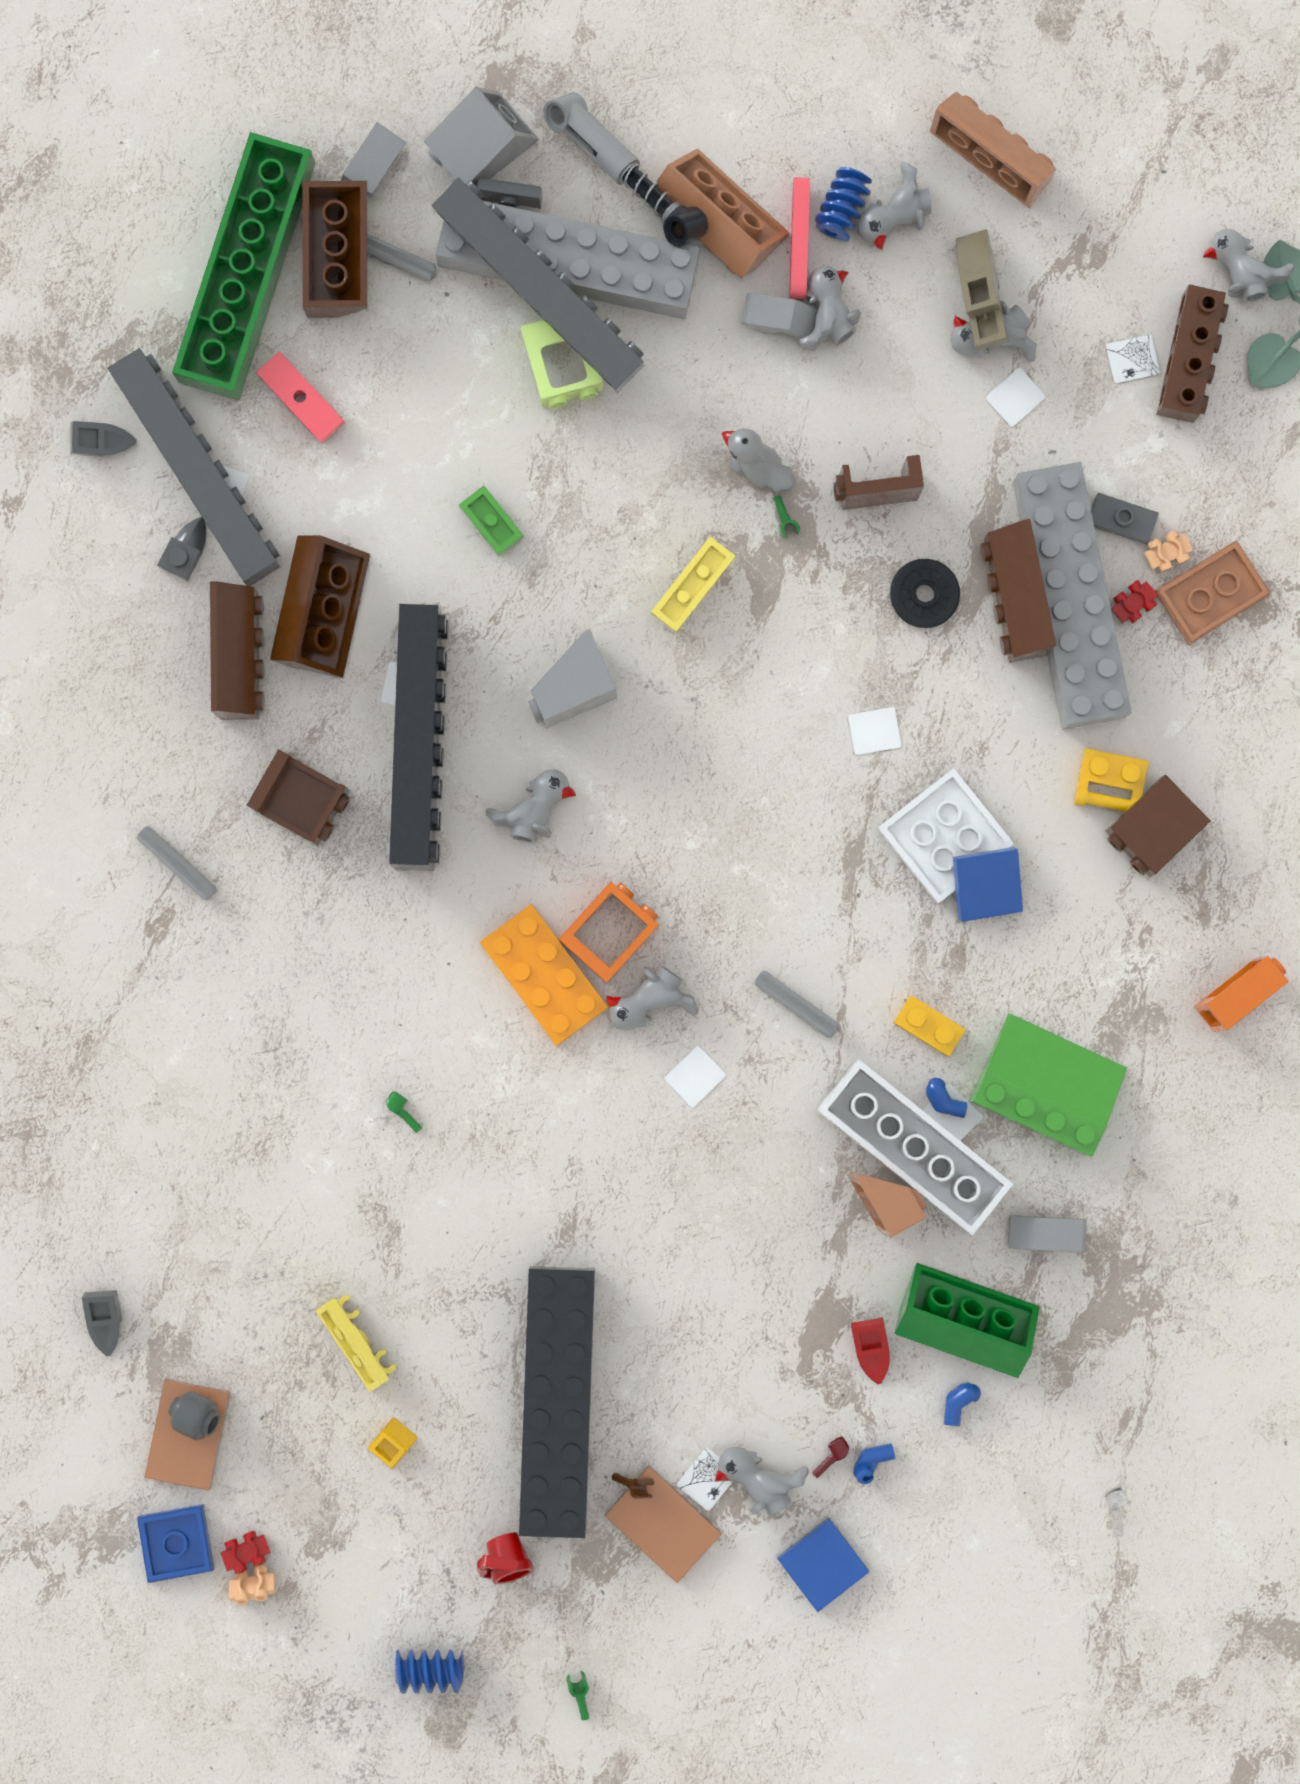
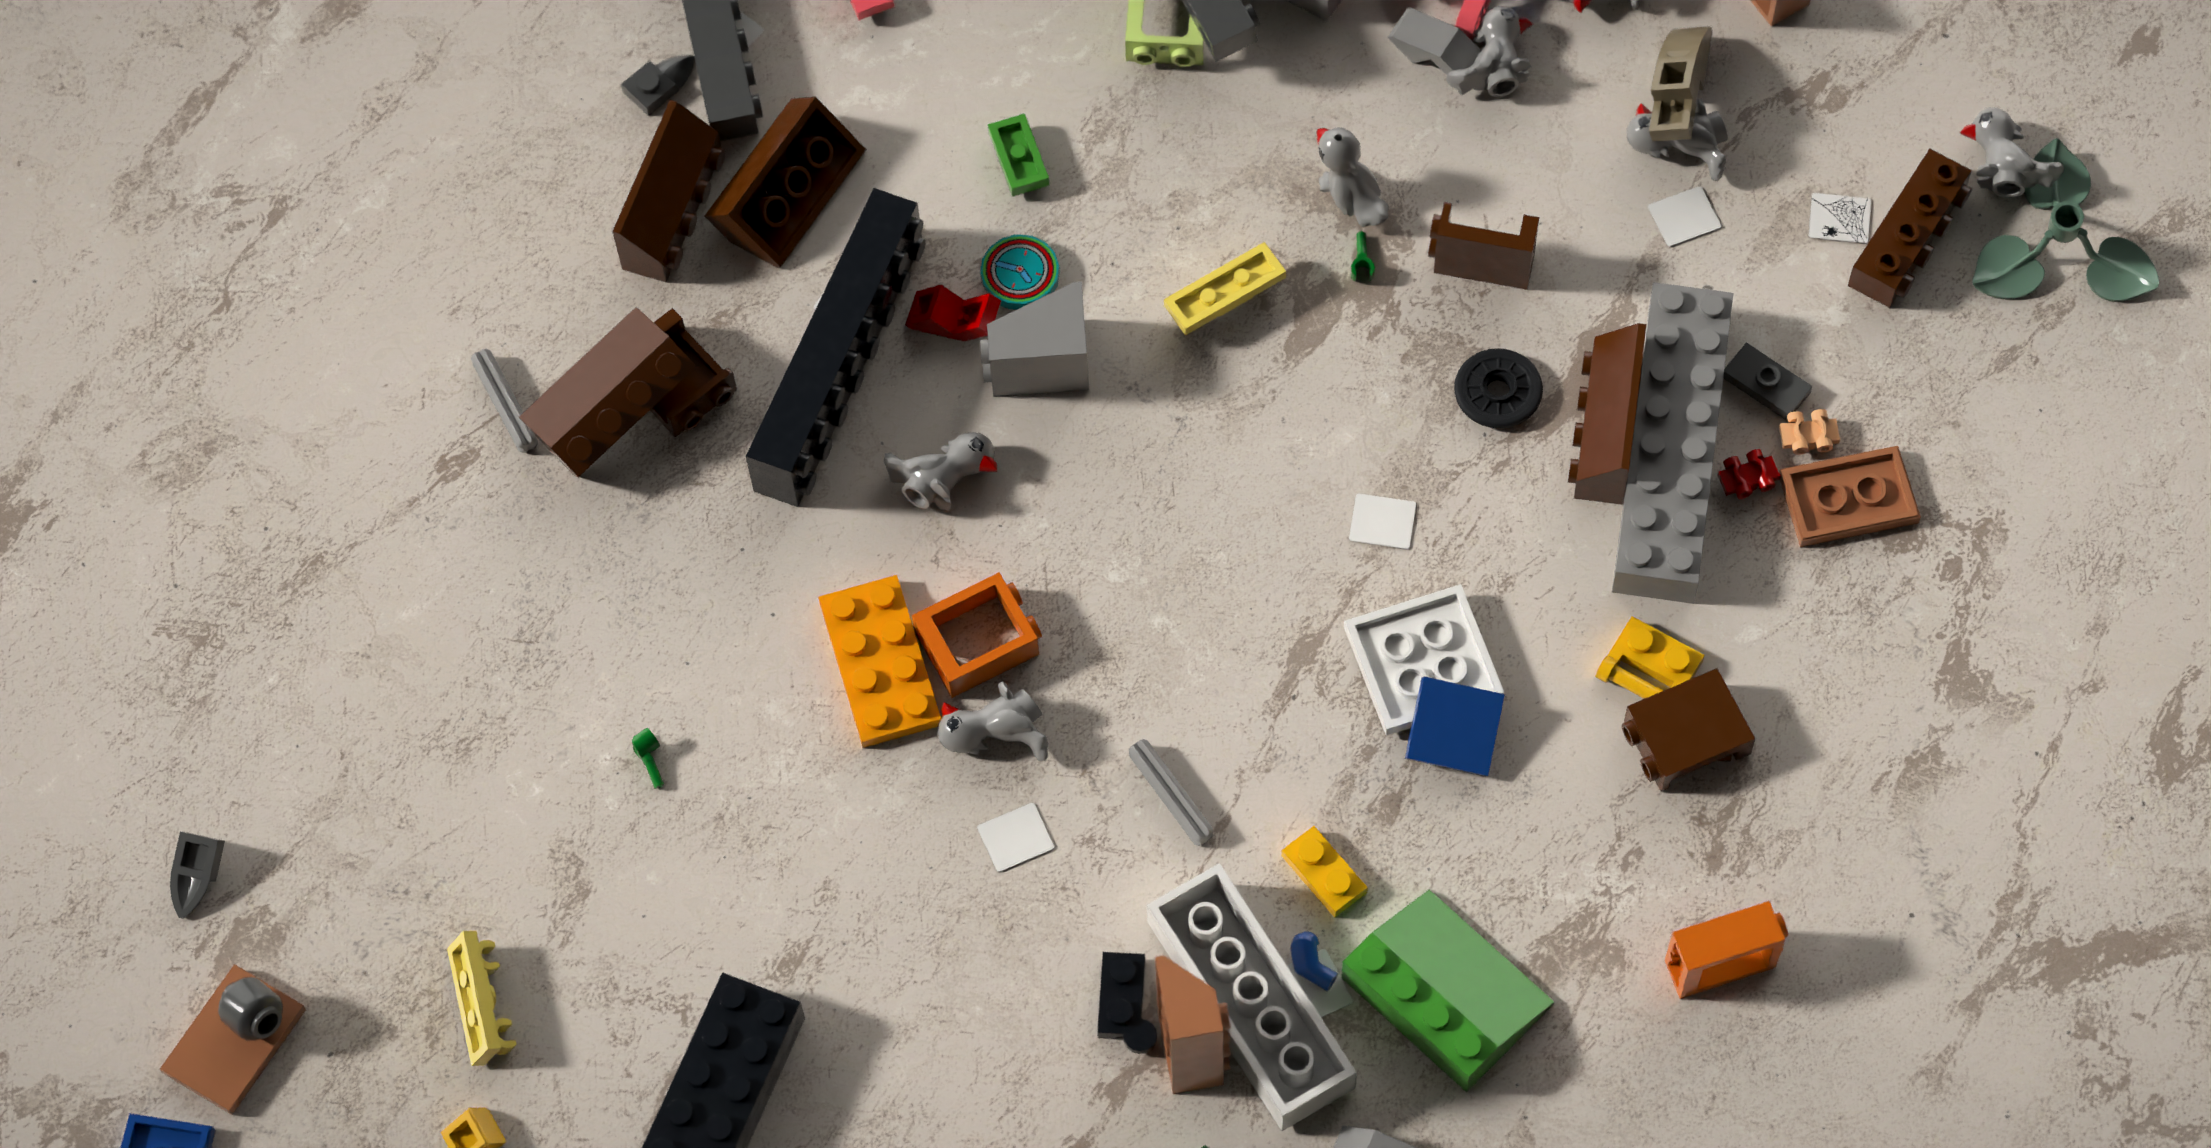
camera: 25 degrees right, 20 degrees down
(258, 839) = (607, 392): none -> reddish brown slope
(491, 674) = (948, 315): none -> red slope
(528, 619) = (1019, 270): none -> tile
(820, 1177) = (1123, 1002): none -> black hinge

